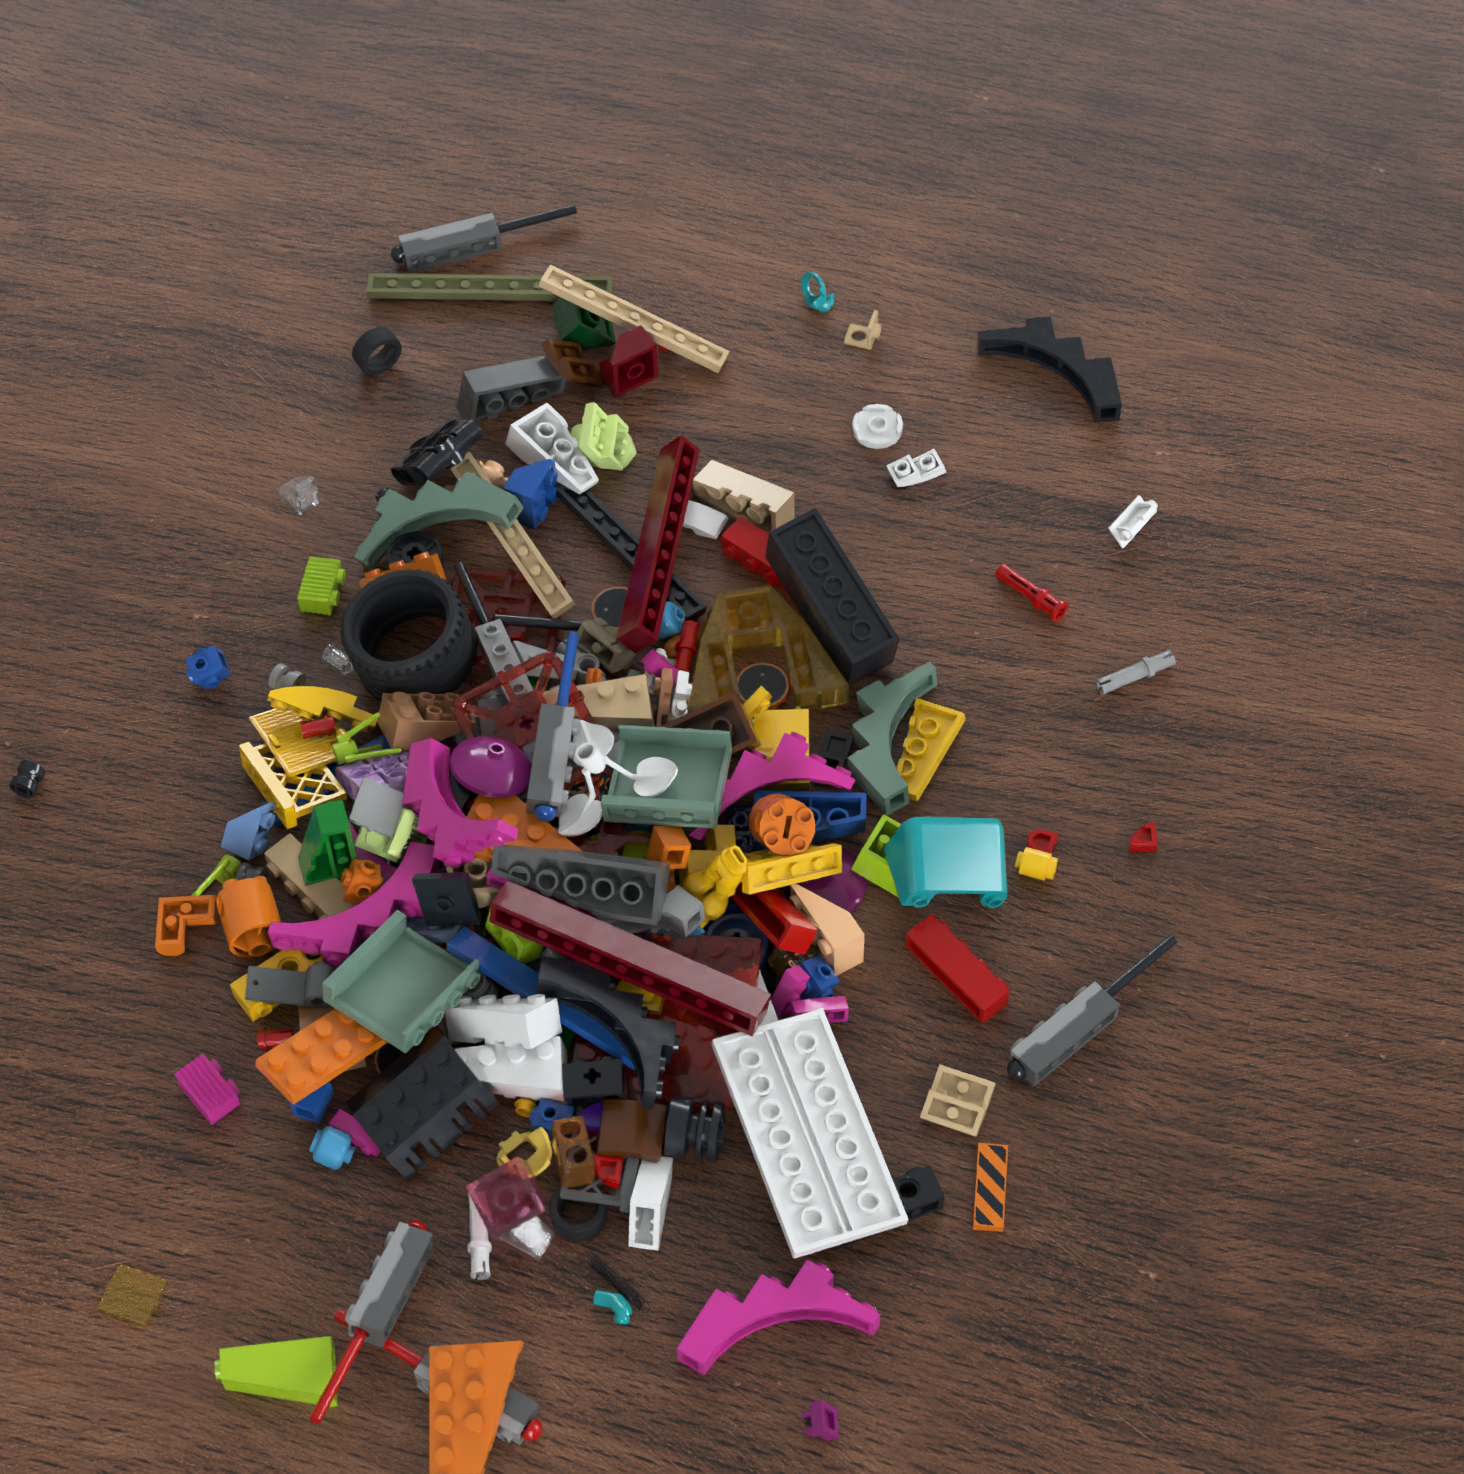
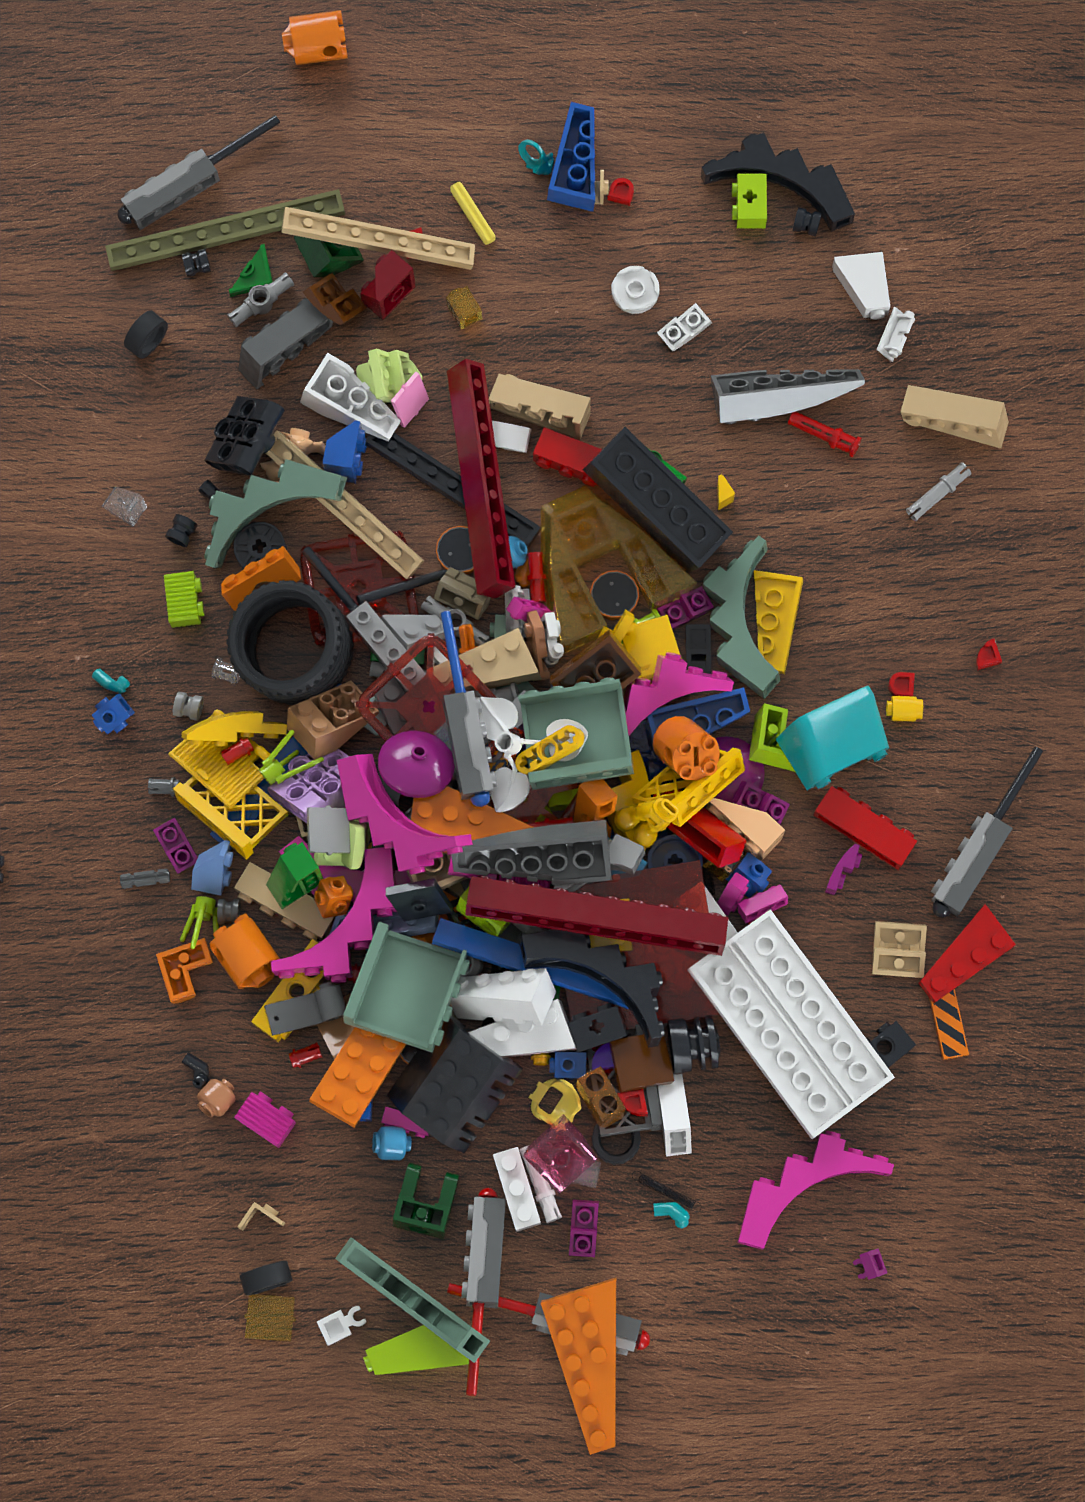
camera: 15 degrees left, 20 degrees up
(142, 1244) = (266, 1278): none -> black tyre
(159, 1026) = (200, 1070): none -> black arm
(161, 1175) = (268, 1210): none -> tan bracket
(164, 1053) = (216, 1097): none -> nougat head
(178, 828) = (145, 878): none -> dark grey axle
(200, 1321) = (336, 1326): none -> white plate
(215, 639) = (108, 683): none -> teal arm
(222, 803) = (176, 845): none -> magenta slope
(231, 748) = (162, 786): none -> dark grey pin
(282, 1296) = (413, 1300): none -> sand green arch
(337, 1230) = (423, 1217): none -> dark green brick
(343, 526) = (181, 530): none -> black wheel
(450, 306) = (201, 261): none -> black wheel
(450, 1231) = (517, 1189): none -> white brick
(500, 350) = (251, 307): none -> light grey pin
(503, 333) = (255, 273): none -> green tile
(510, 1295) = (583, 1228): none -> magenta slope
(614, 462) = (410, 399): none -> bright pink piece
(636, 149) = (315, 37): none -> orange cylinder
(656, 769) = (561, 750): none -> yellow beam
(698, 400) = (463, 307): none -> clear yellow brick
(737, 327) = (472, 213): none -> light yellow axle
(835, 717) = (686, 608): none -> magenta slope
(850, 304) = (574, 166): none -> blue wedge
(863, 918) = (755, 798): none -> magenta slope
(891, 341) = (621, 191): none -> red tile
(908, 620) = (724, 492): none -> yellow slope
(923, 999) = (846, 864): none -> magenta slope
(978, 543) = (764, 395): none -> wedge
(1019, 374) = (754, 213): none -> lime brick
(1032, 1125) = (969, 953): none -> red wing
(1071, 404) = (807, 221): none -> black wheel
(1114, 468) = (865, 282): none -> white slope
(1176, 604) = (956, 415): none -> tan wedge

